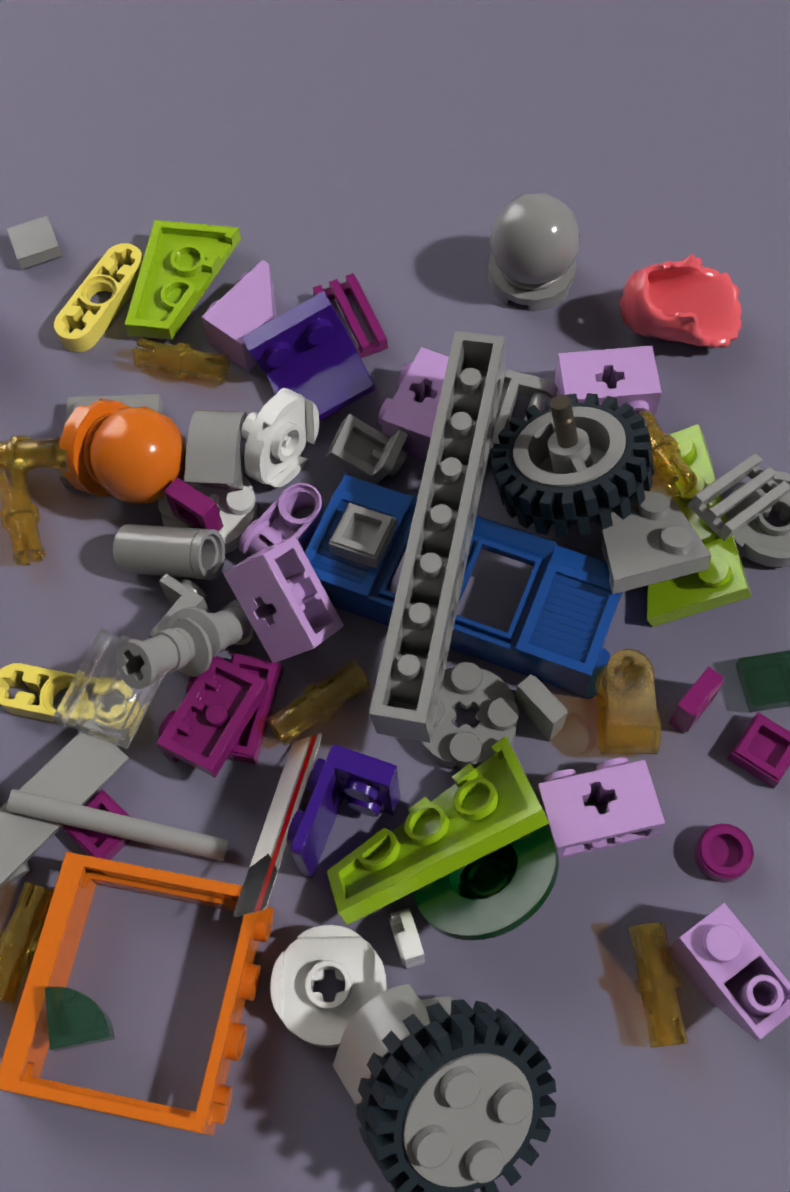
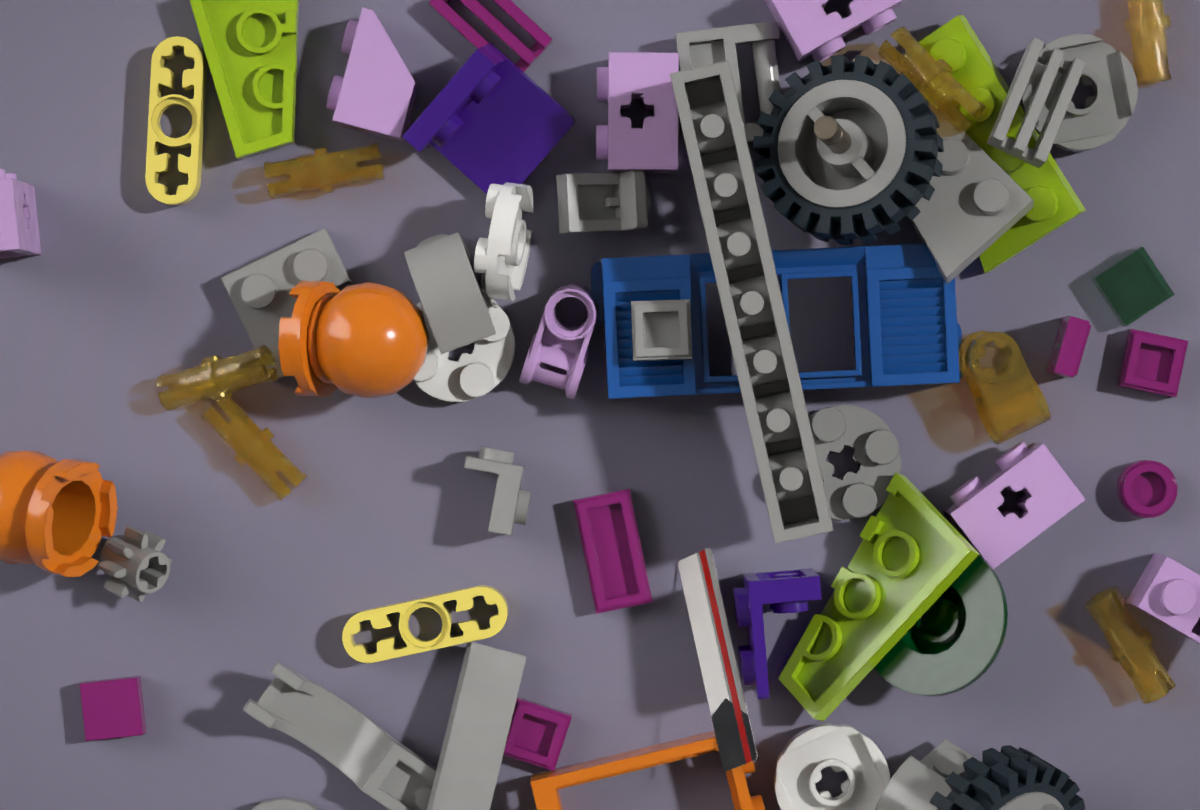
camera: 25 degrees left, 25 degrees up
(34, 242) = (44, 76): light grey tile -> none
(99, 698) = (478, 598): clear plate -> none
(116, 825) = (559, 730): light grey bar -> none
(169, 551) = (452, 425): light grey pin -> none
(186, 644) = (541, 528): light grey piece -> none
(193, 506) = (460, 371): magenta tile -> none
(211, 716) = (594, 582): magenta bracket -> none
(284, 599) = (611, 435): lavender brick -> none
(318, 702) = (689, 514): clear yellow pin -> none
(406, 938) = (882, 706): white tile -> none
(541, 706) = (916, 423): light grey tile -> none

